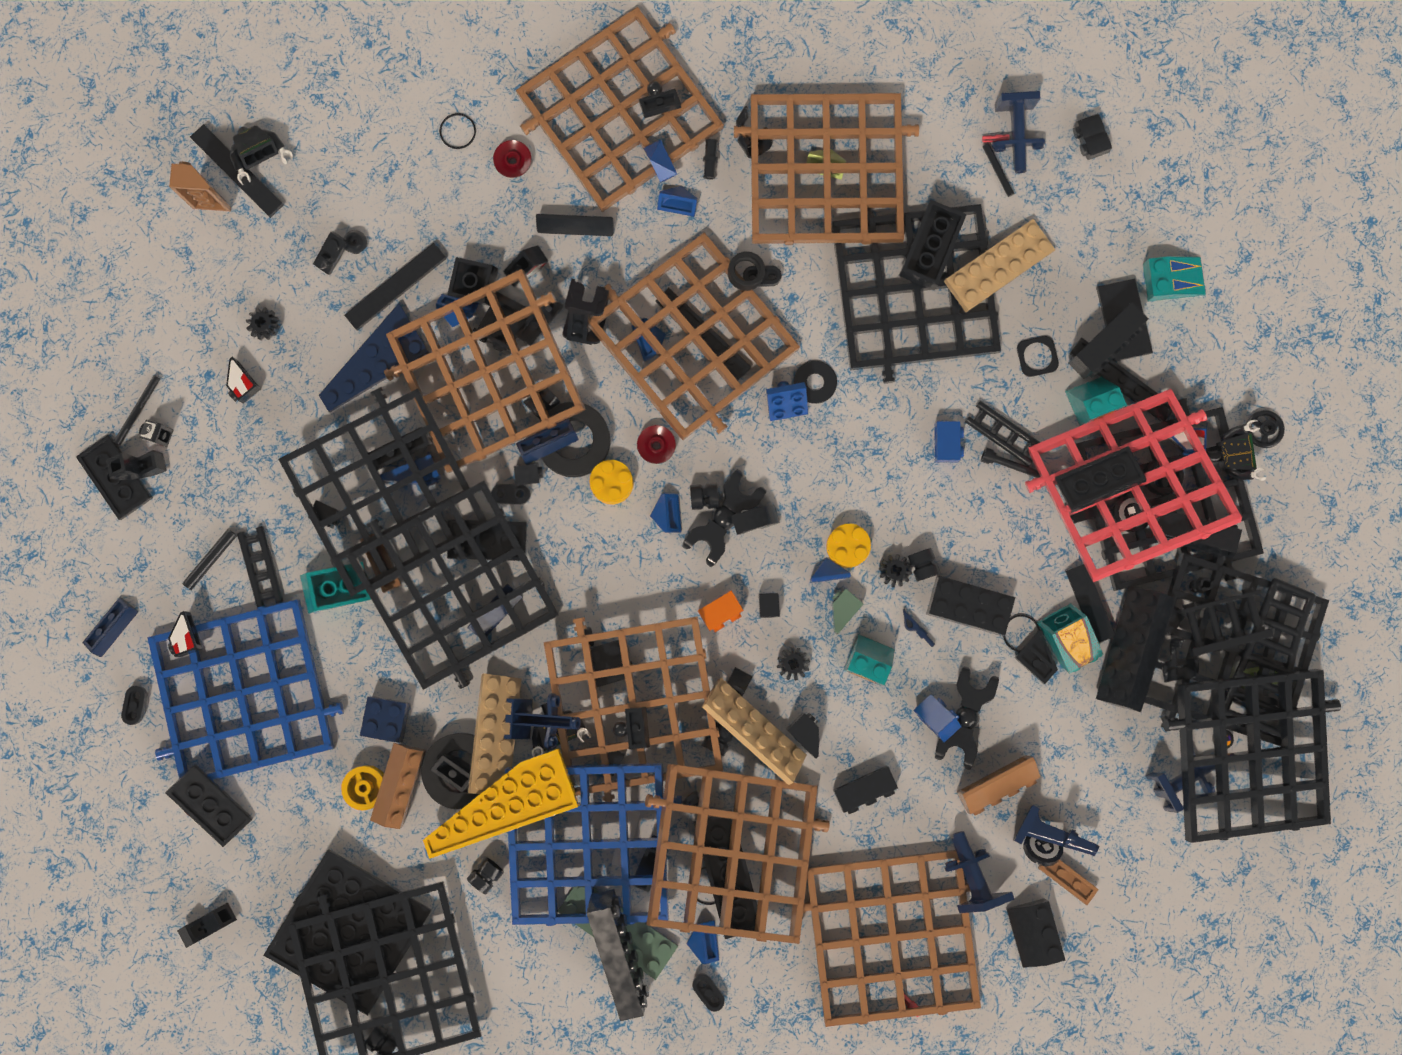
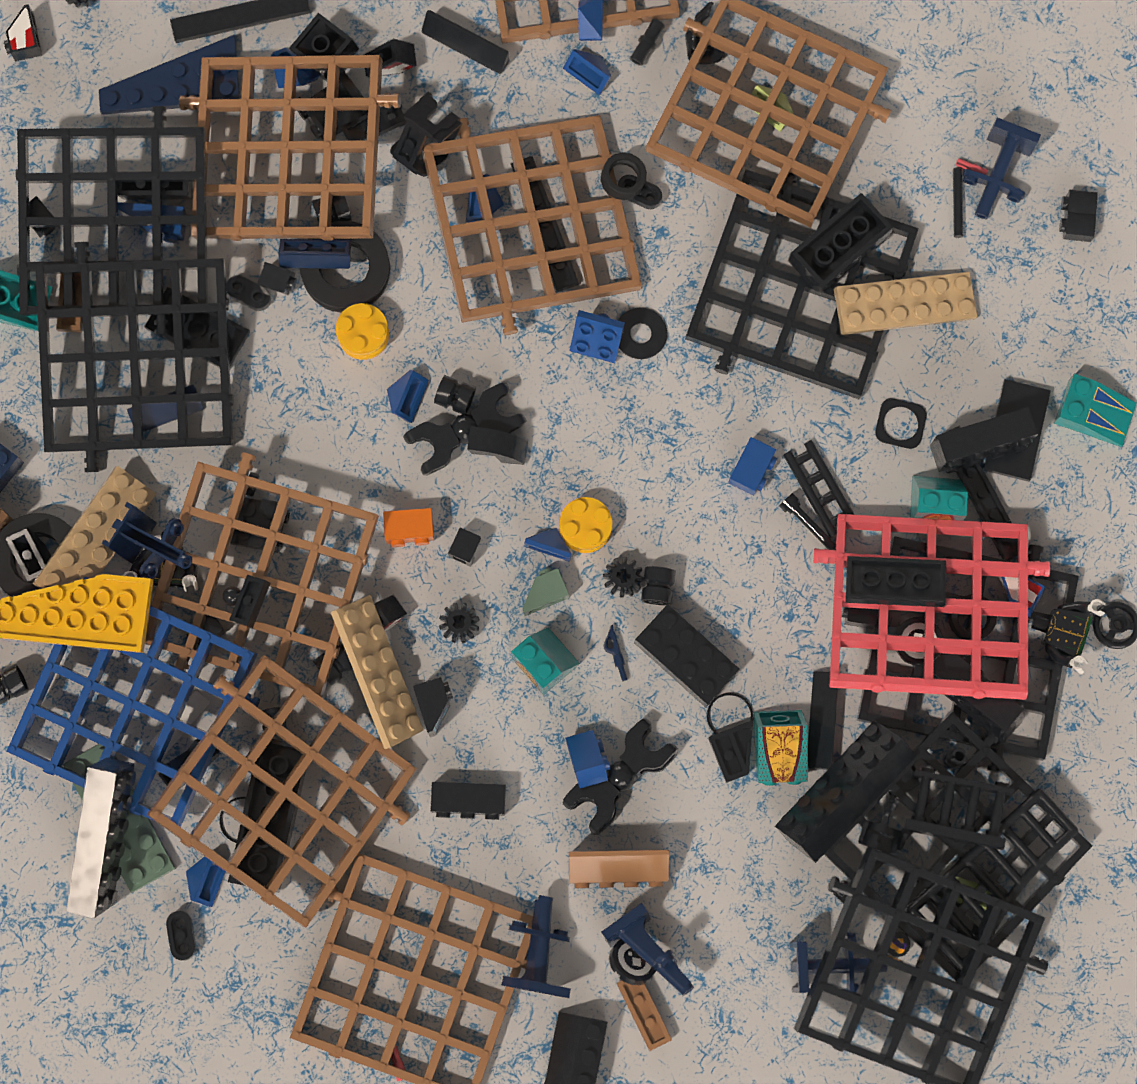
camera: 25 degrees right, 5 degrees down
(656, 434) = (428, 304): dark red dish -> none

